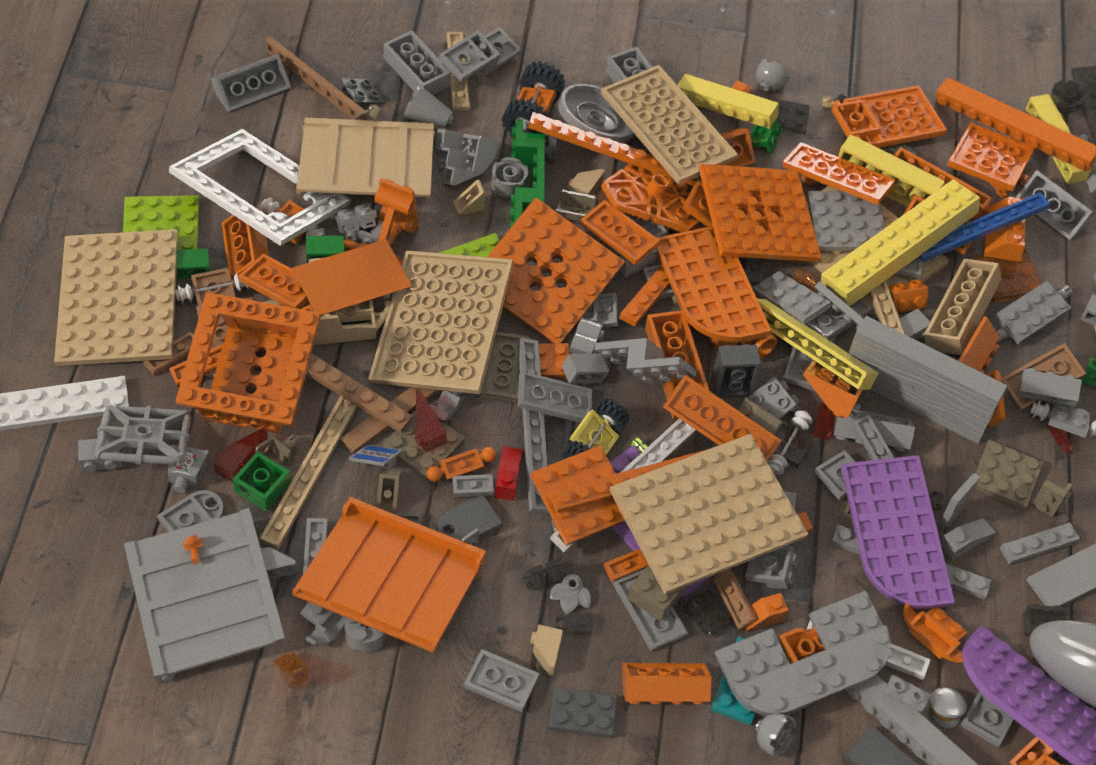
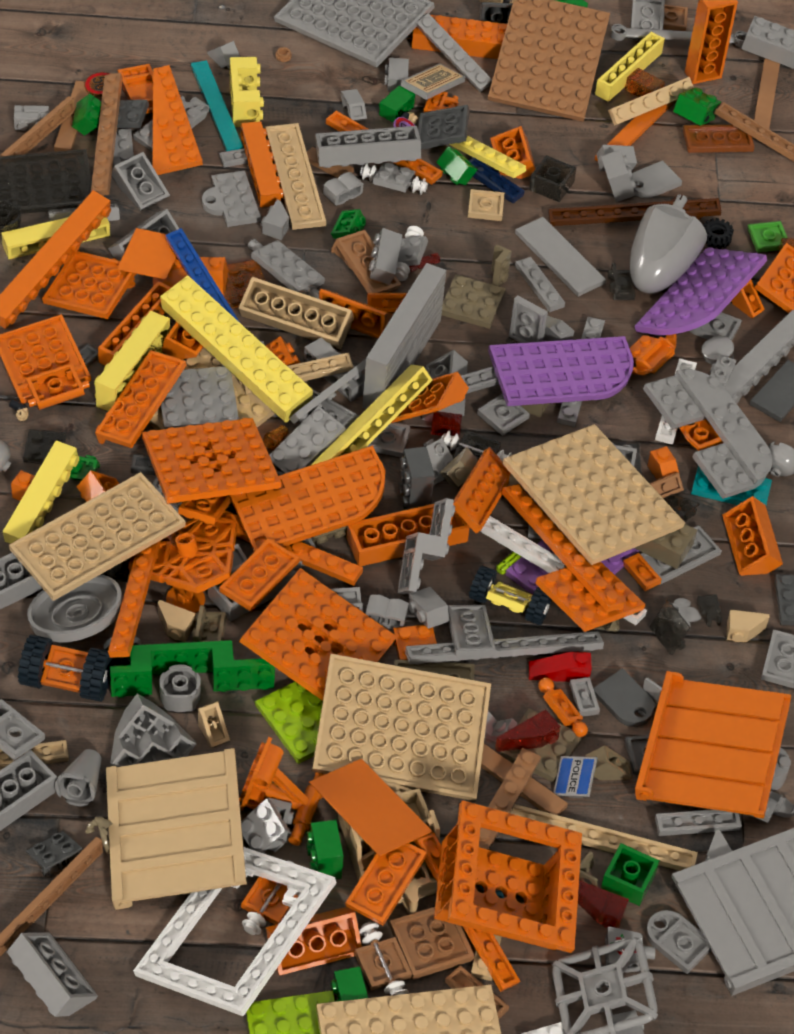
camera: 95 degrees left, 5 degrees down
(193, 543) = (727, 916): orange plate -> none
(1018, 187) = (148, 255): none -> orange piece

